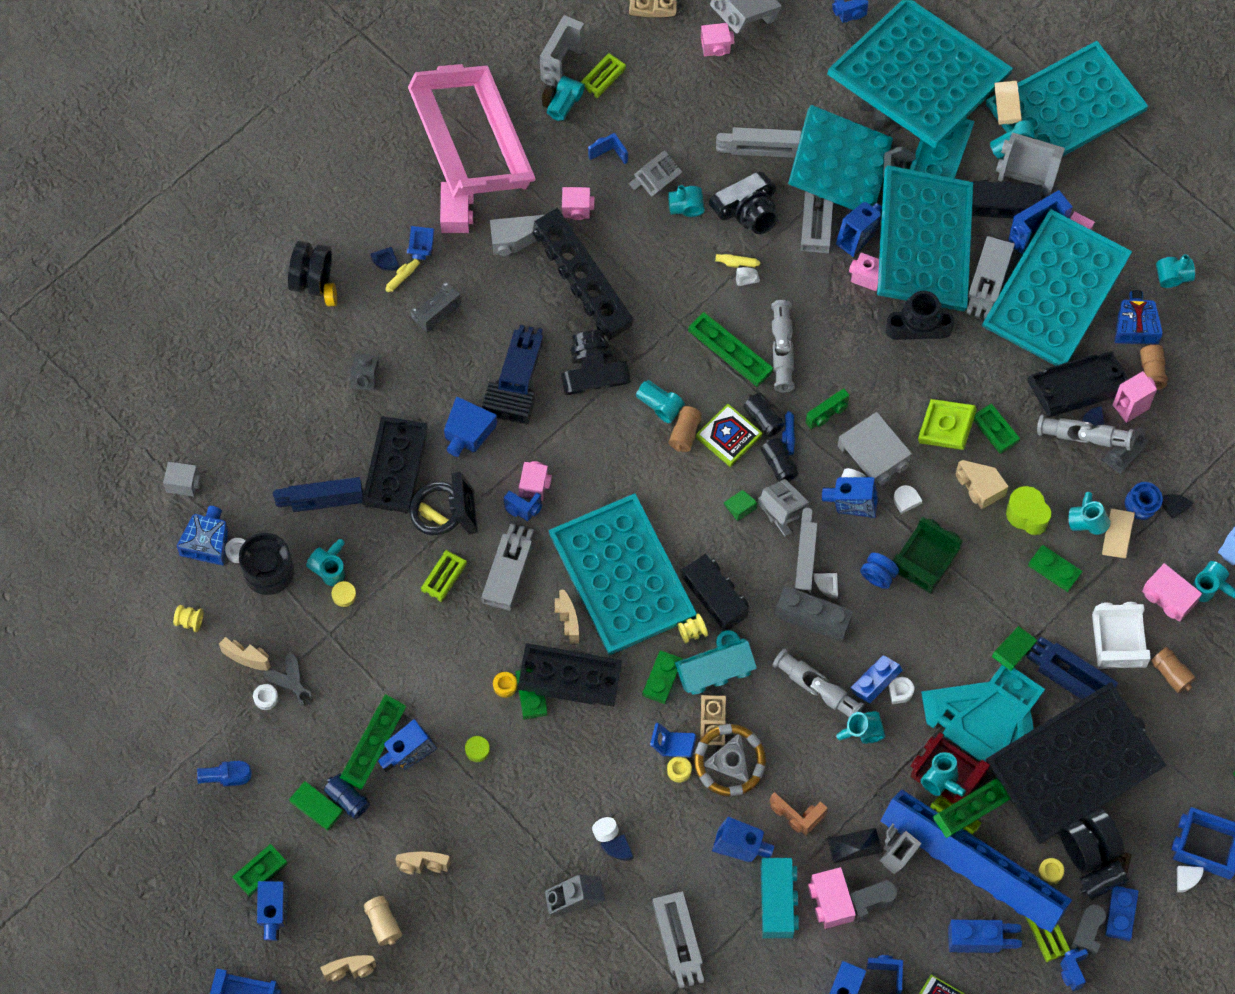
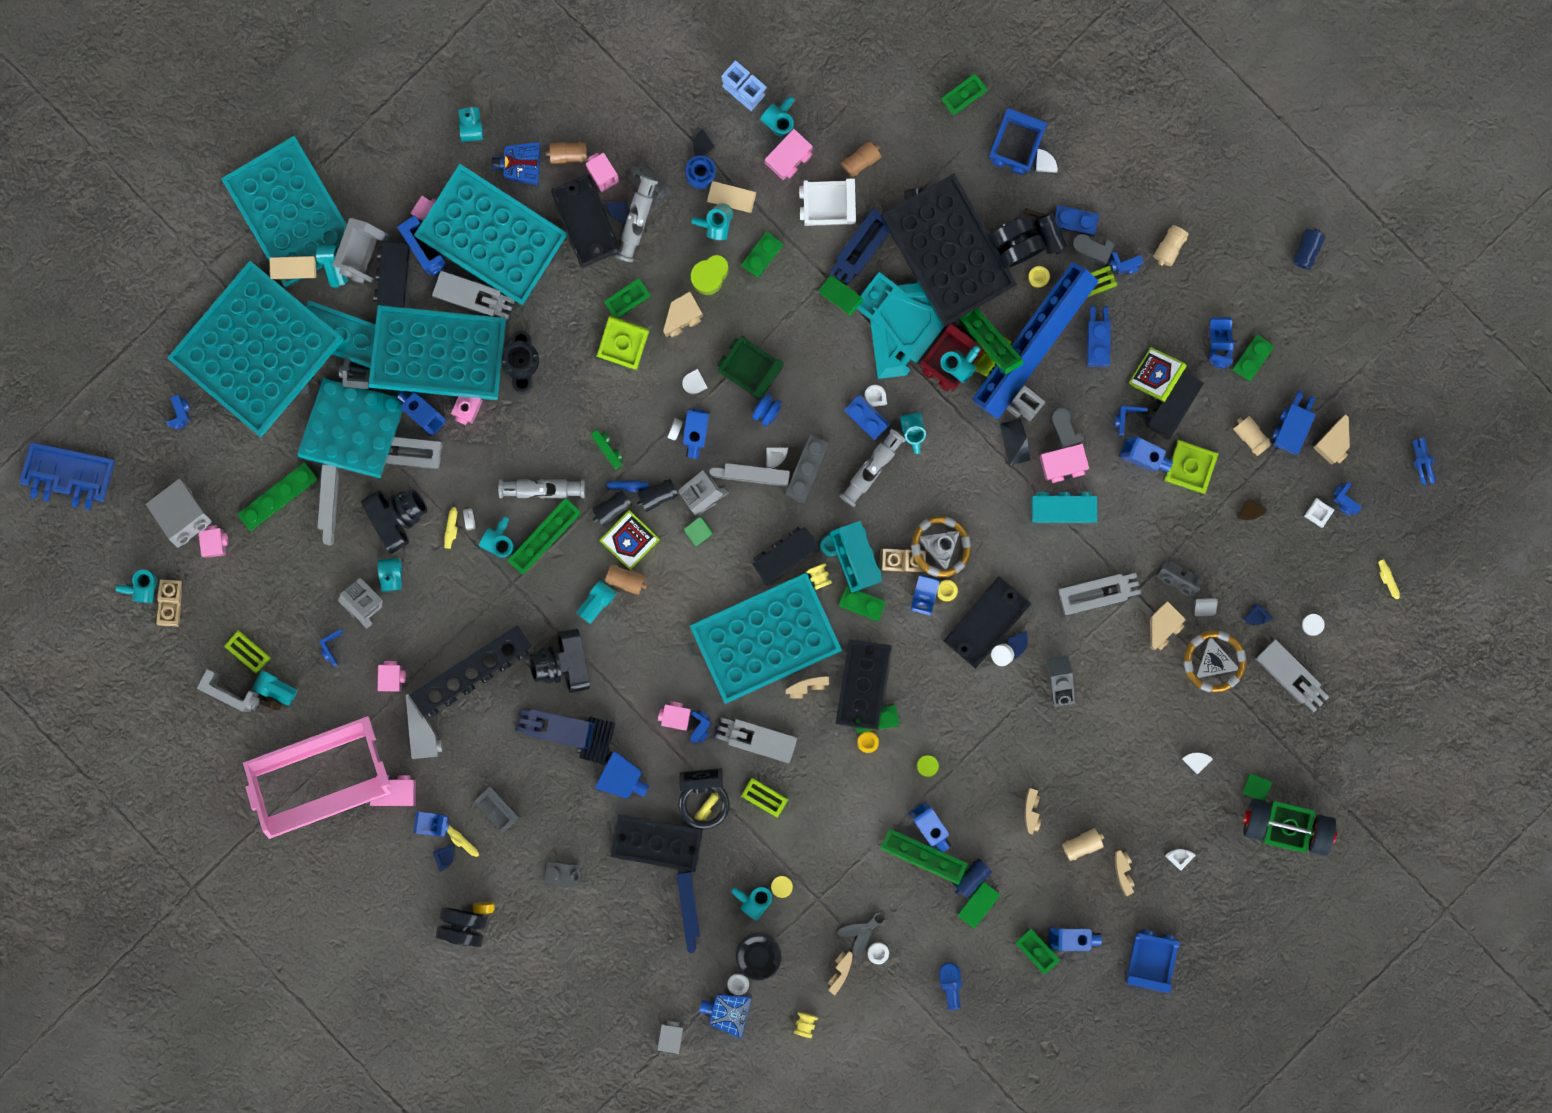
camera: 85 degrees left, 20 degrees up
(643, 813) = (987, 622): none -> black piece
(725, 297) = (493, 537): none -> teal piece
(741, 841) = (1014, 544): blue torso -> none
(764, 98) = (277, 497): none -> green plate
(812, 815) = (992, 477): nougat bracket -> none
(875, 448) = (648, 408): light grey panel -> none

